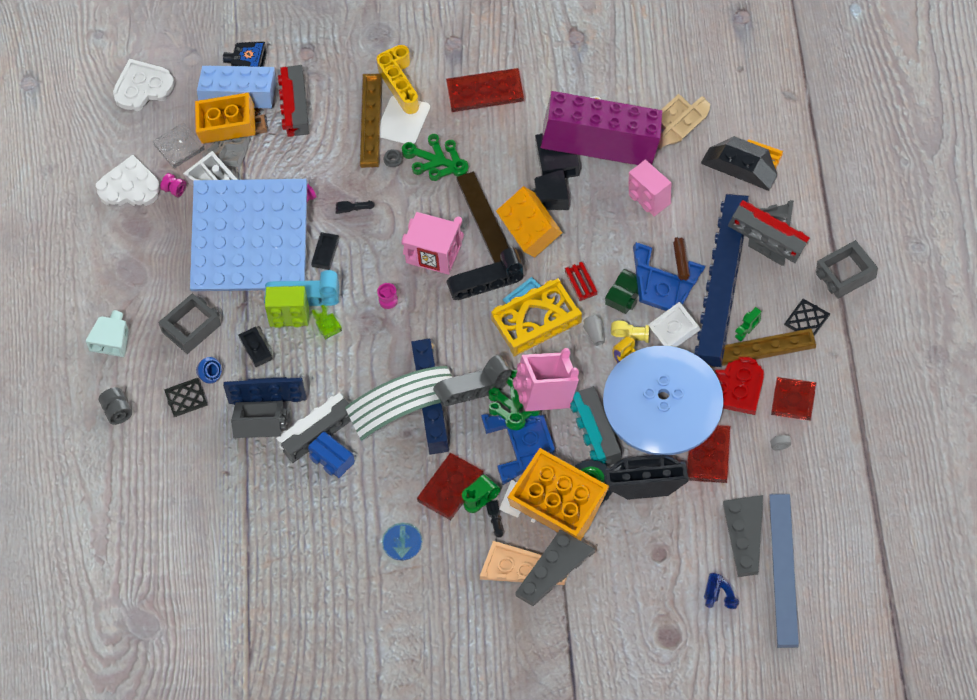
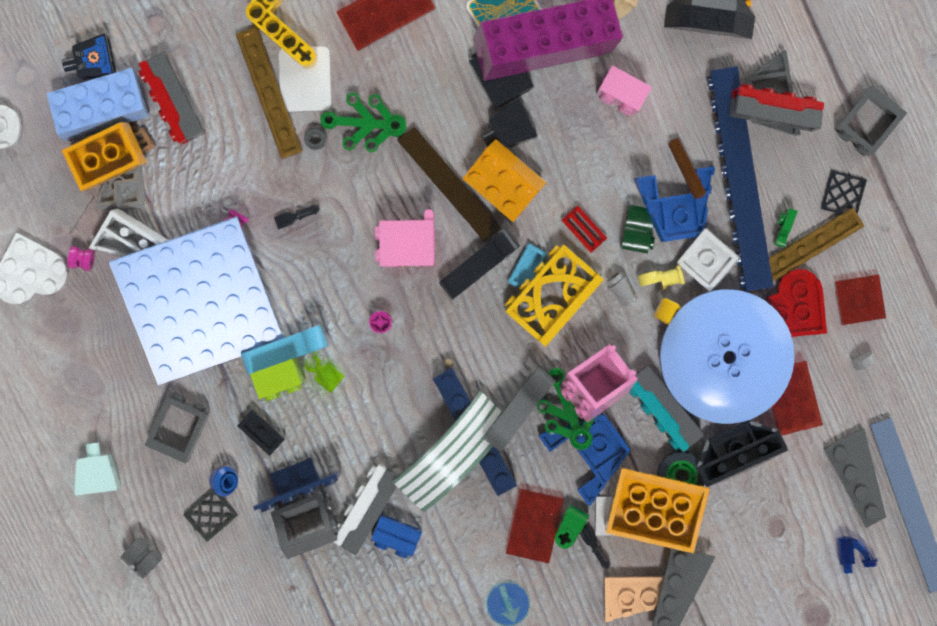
camera: 20 degrees left, 30 degrees up
(325, 251) = (287, 283): black tile -> none

